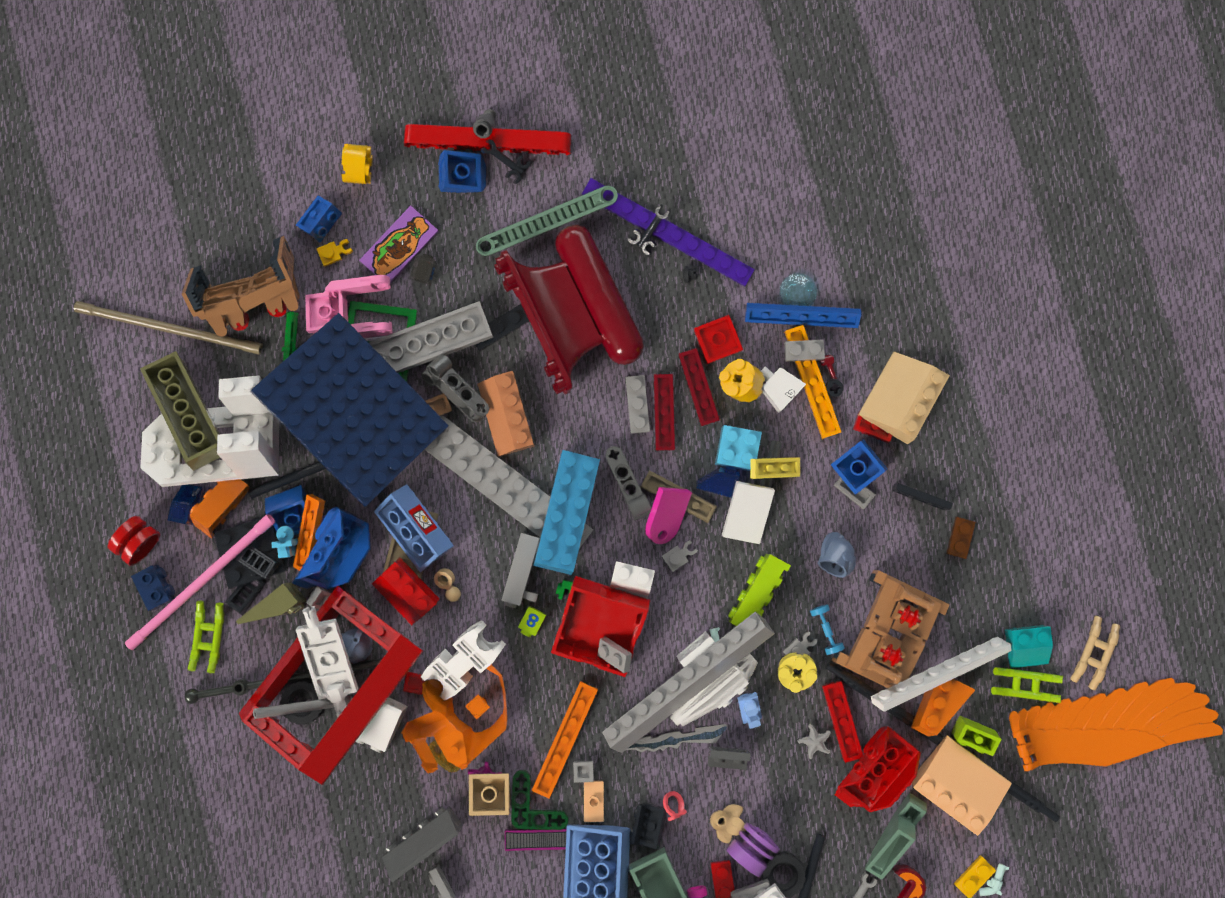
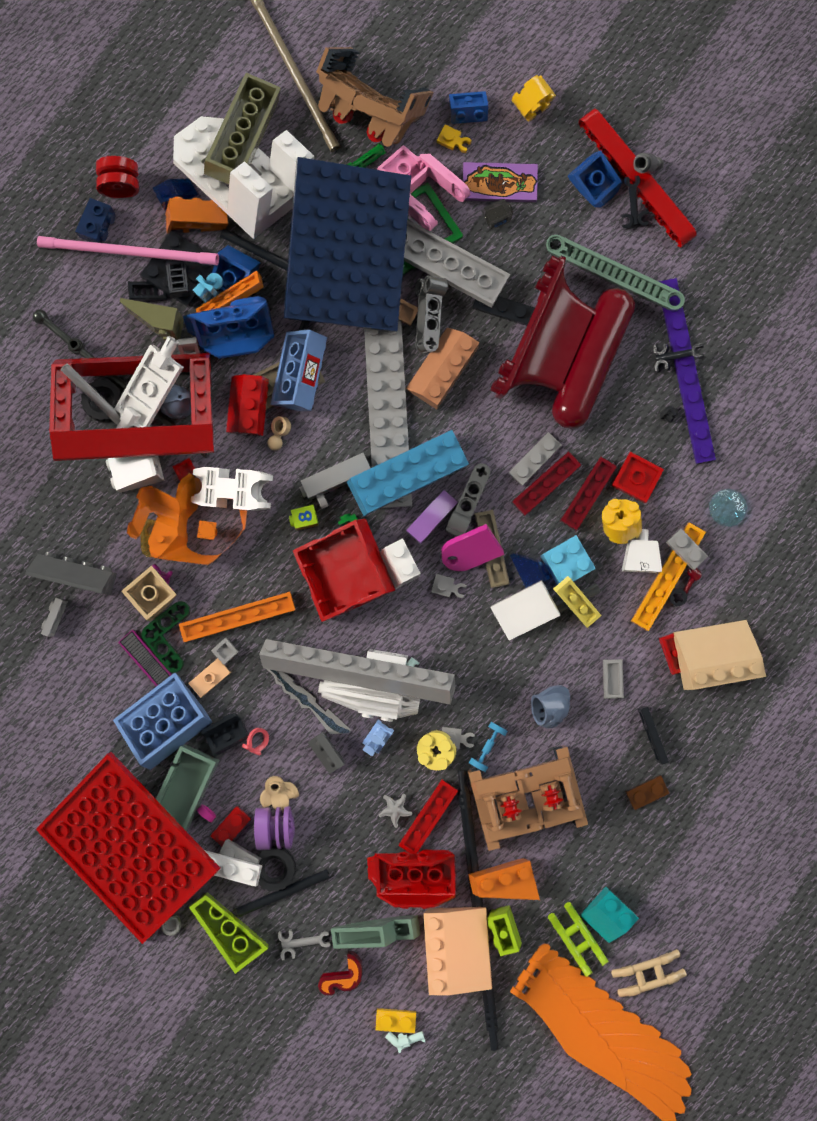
camera: 55 degrees right, 0 degrees up
(197, 645) = (88, 302): lime piece -> none
(614, 654) = (331, 599): light grey plate -> none
(615, 521) = (431, 517): none -> medium lavender slope
(759, 589) = (477, 667): lime wedge -> none
(802, 315) = (713, 526): blue plate -> none
(859, 466) = (634, 666): blue slope -> none
(940, 673) = (525, 859): white plate -> none

